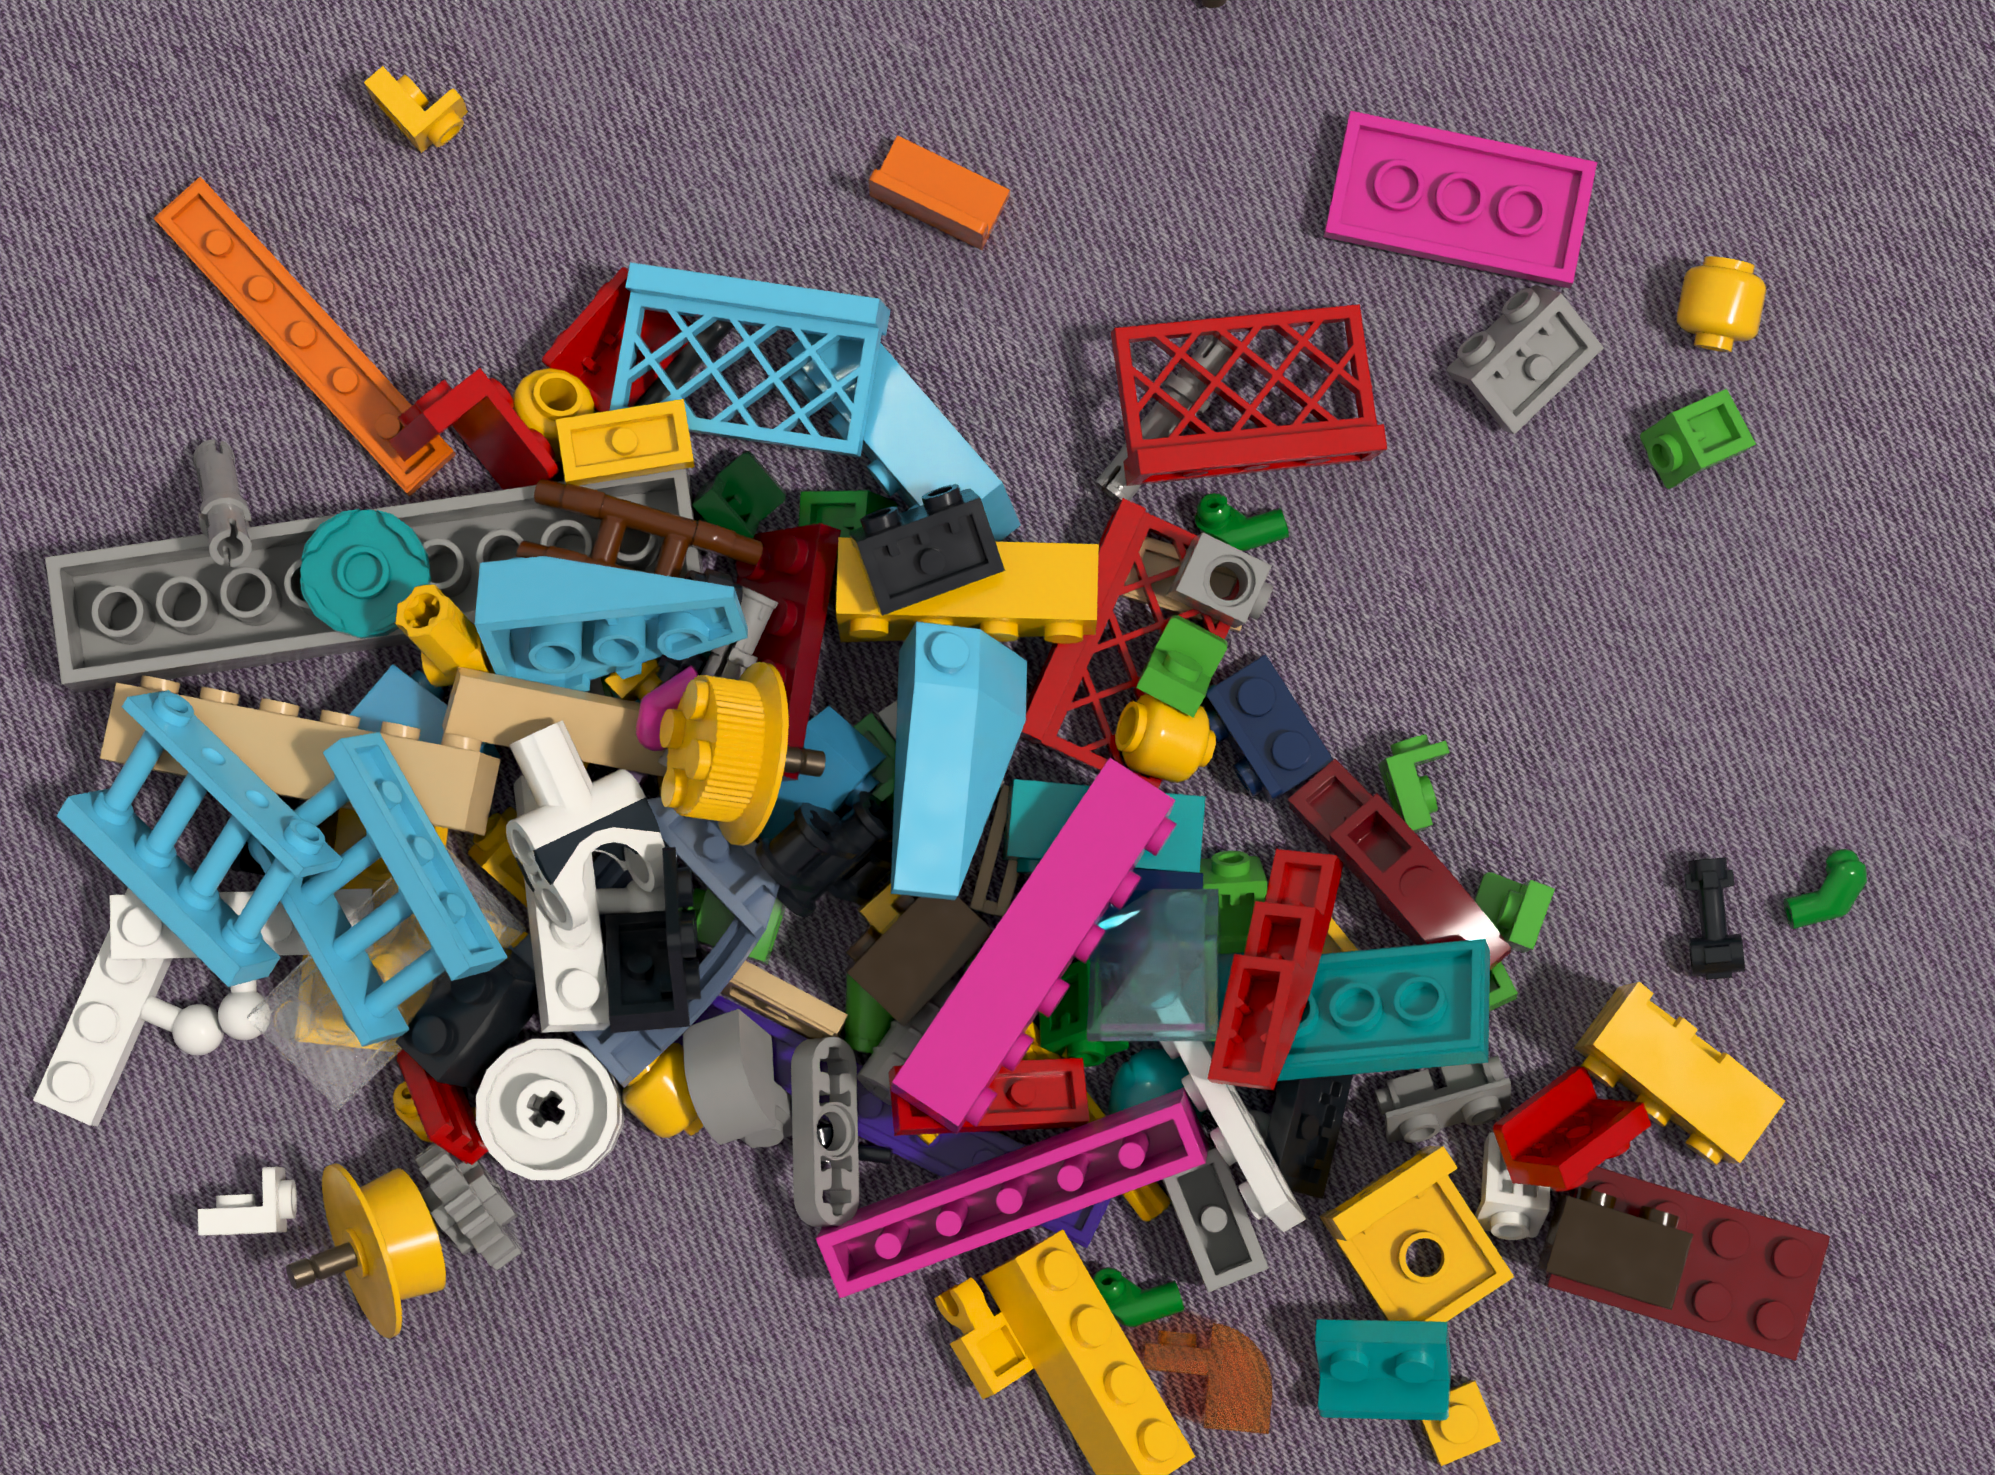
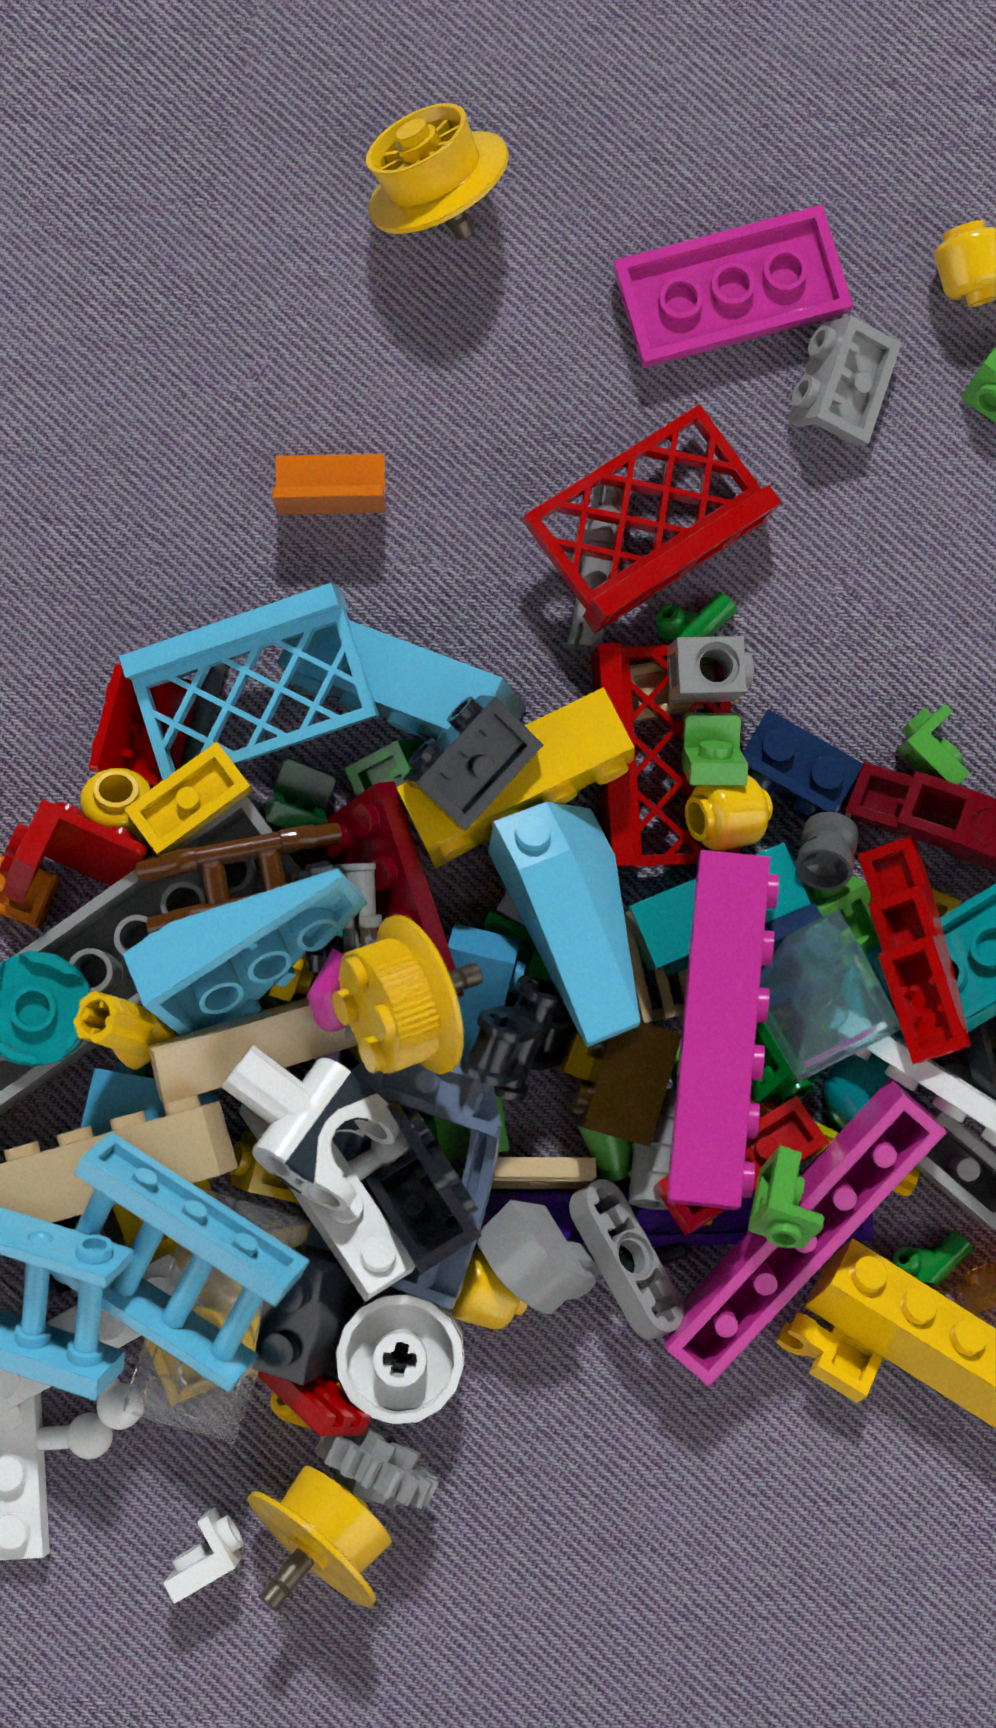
camera: 25 degrees left, 0 degrees up
(995, 1151) = (776, 1203): none -> bright green bracket
(1244, 828) = (827, 851): none -> dark grey wheel

